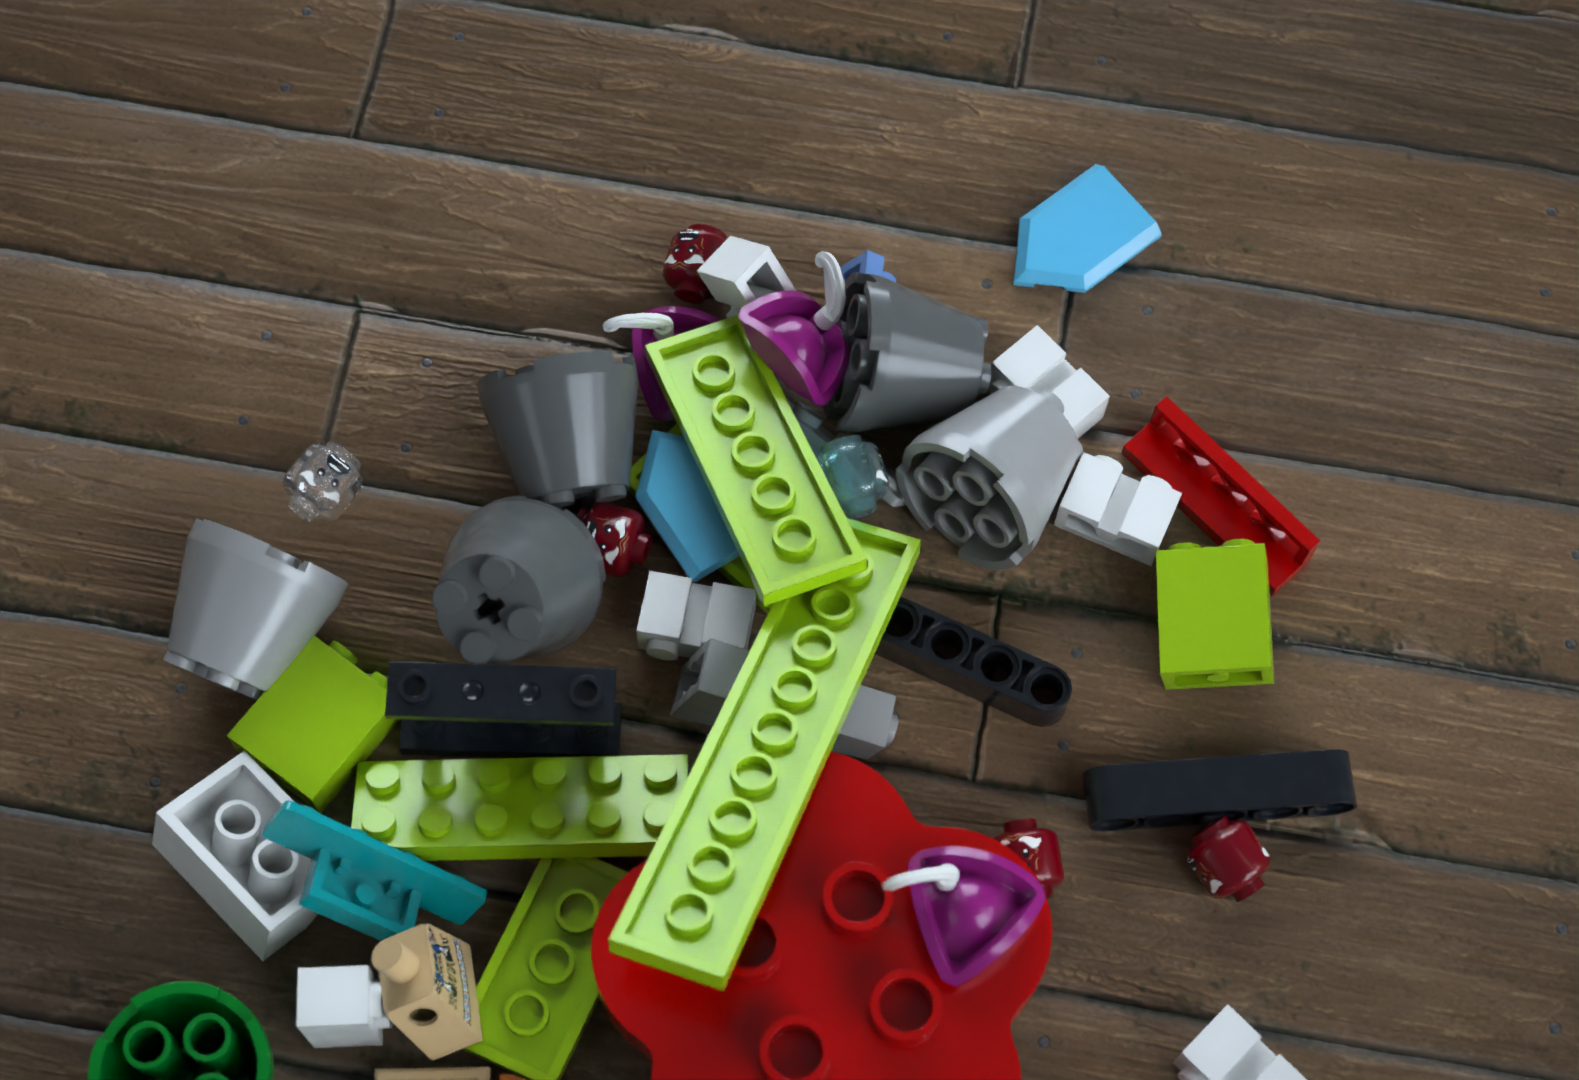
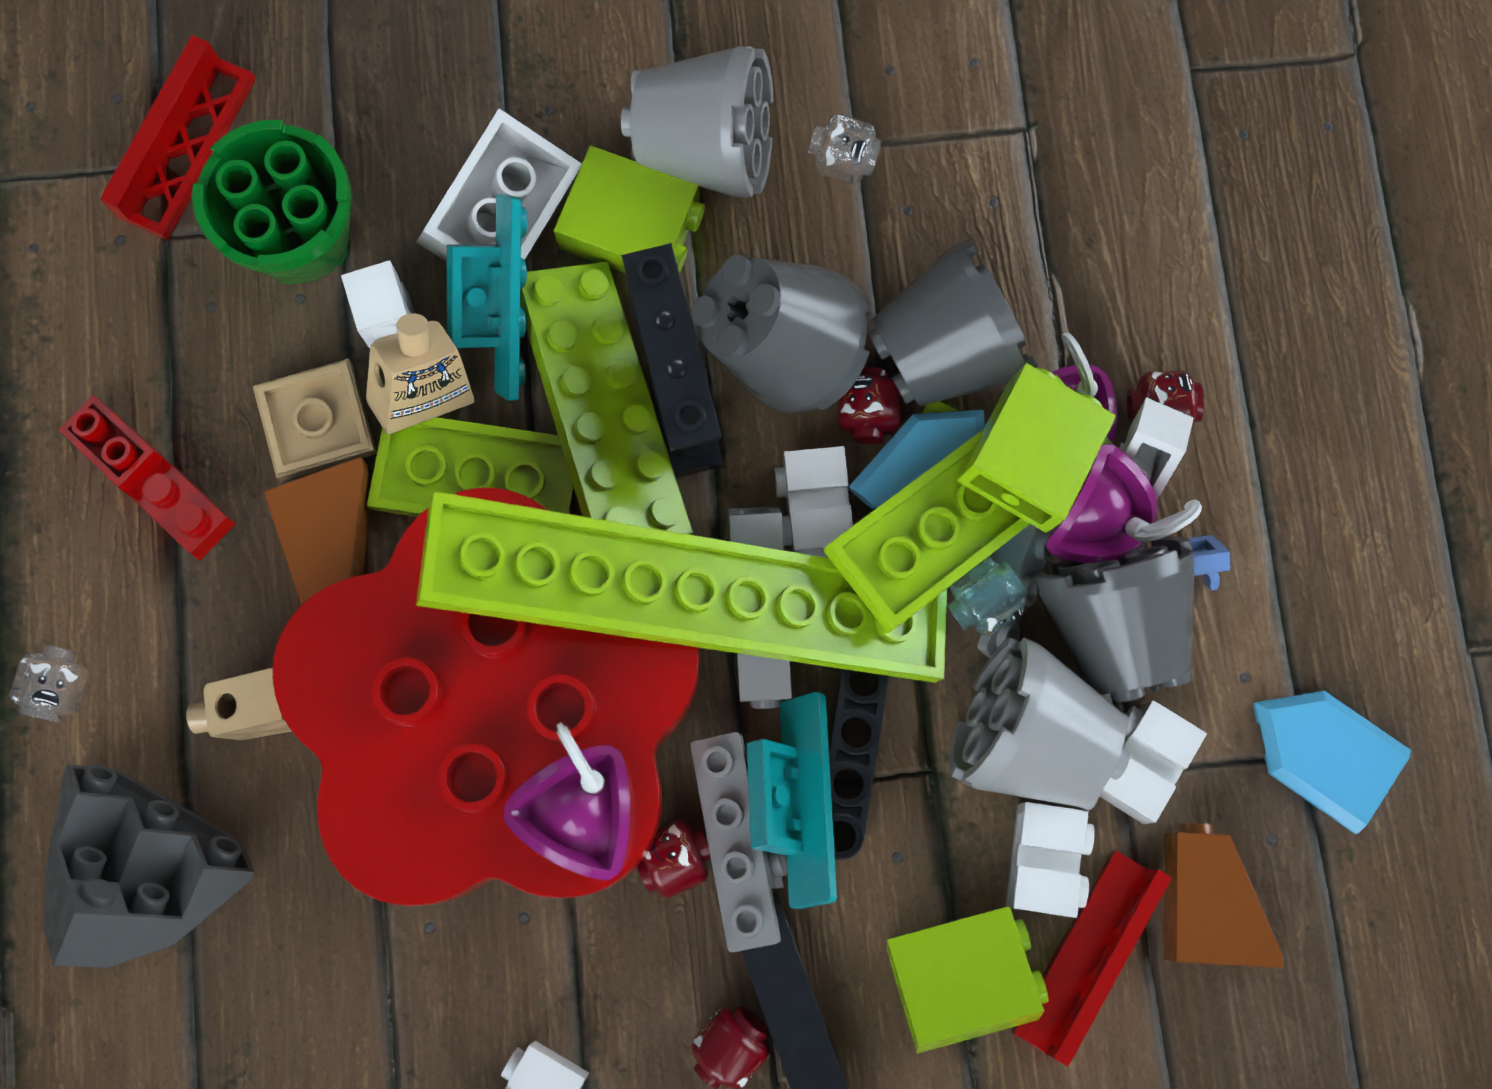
camera: 75 degrees right, 10 degrees up
(721, 378) = (1037, 448): none -> lime brick
(1002, 715) = (793, 800): none -> teal bracket
(1027, 789) = (741, 874): none -> light grey bracket
(1200, 371) = (1212, 904): none -> dark orange slope

